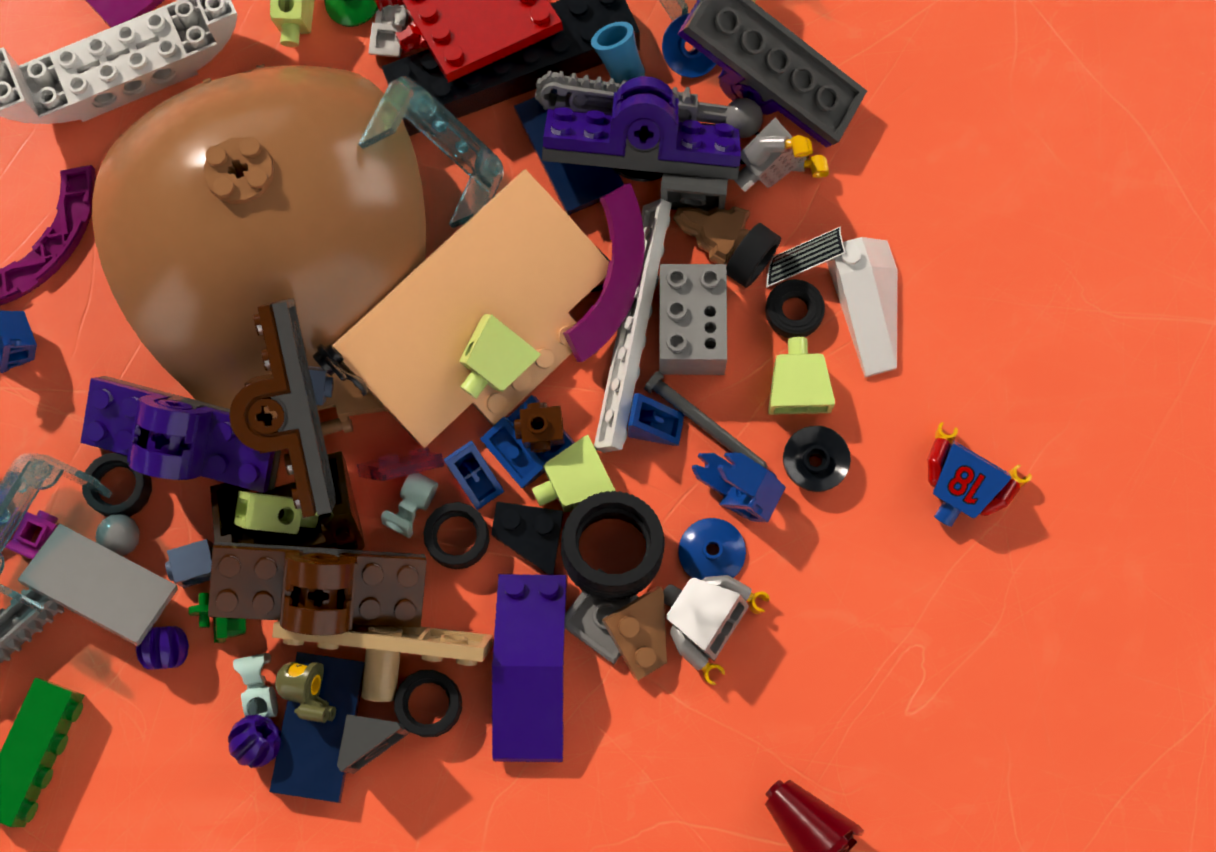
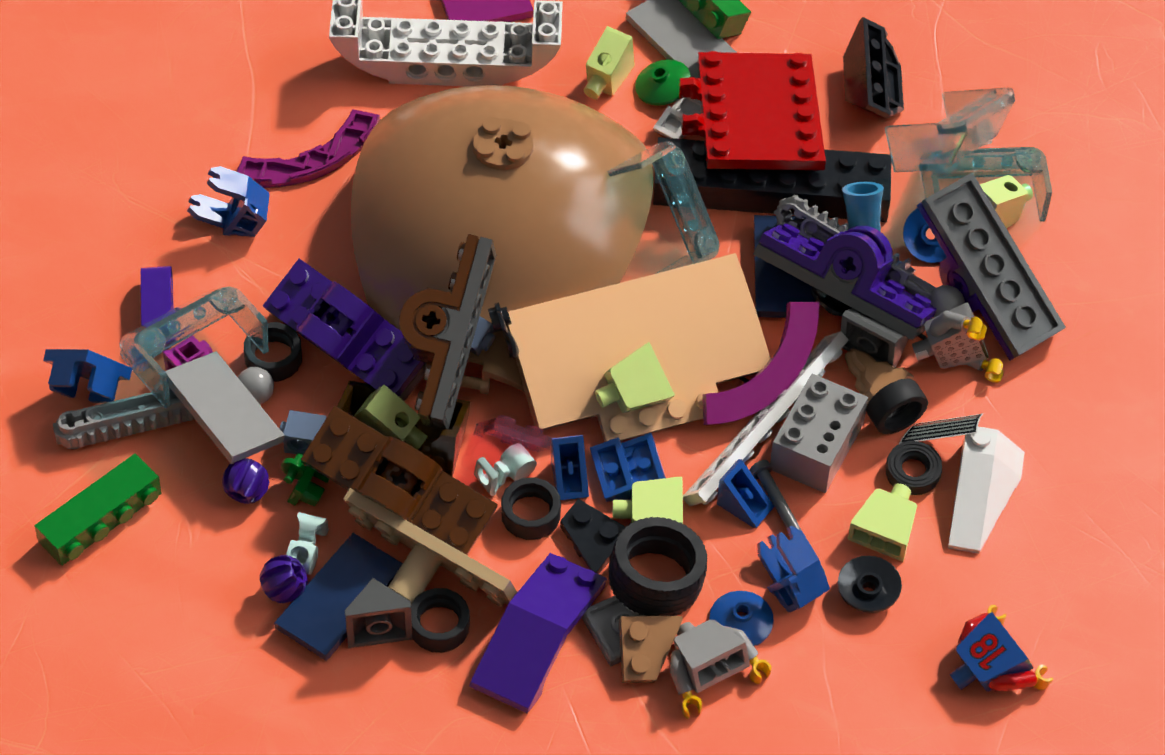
camera: 20 degrees right, 20 degrees down
(302, 685) = (346, 554): olive piece -> none
(539, 414) = (645, 452): reddish brown brick -> none

